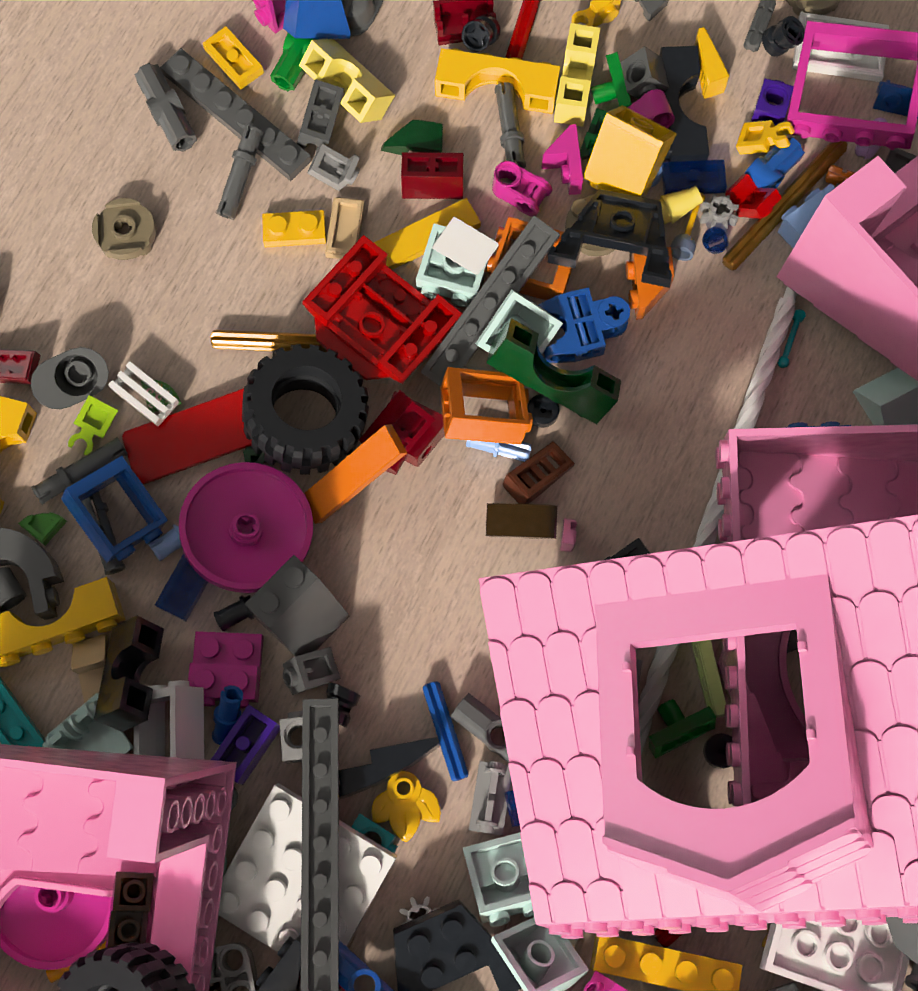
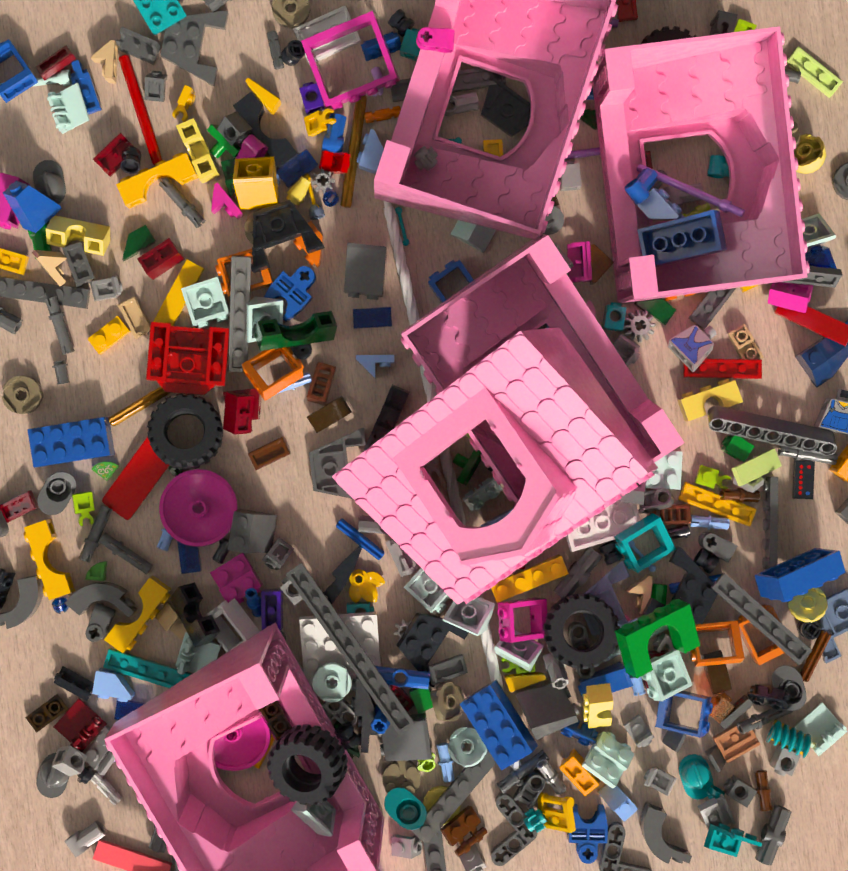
camera: 35 degrees left, 15 degrees up
(118, 471) = (134, 527): blue window -> none
(124, 377) = (82, 473): white tile -> none
(141, 327) = (71, 442): none -> blue brick
(196, 233) = (61, 372): none -> dark grey pin
(234, 919) = (323, 689): none -> light aqua plate
(285, 83) = (50, 262): none -> tan slope
(347, 700) = (302, 557): black wheel -> none
(355, 473) = (233, 449): orange tile -> none
(398, 521) = (269, 453): none -> reddish brown tile
(459, 608) = (330, 459): none -> dark grey wing
(465, 245) = (205, 290): white sticker -> none
(523, 191) = (212, 235): dark pink piece -> none
(568, 535) = (356, 404): bright pink tile -> none
(629, 484) = (369, 362): none -> light blue slope
(670, 431) = (372, 318): none -> clear blue plate
(681, 784) = (477, 498): none -> light aqua hinge
(705, 356) = (365, 270): none -> dark grey slope
(897, 251) = (425, 158): none -> light grey gear

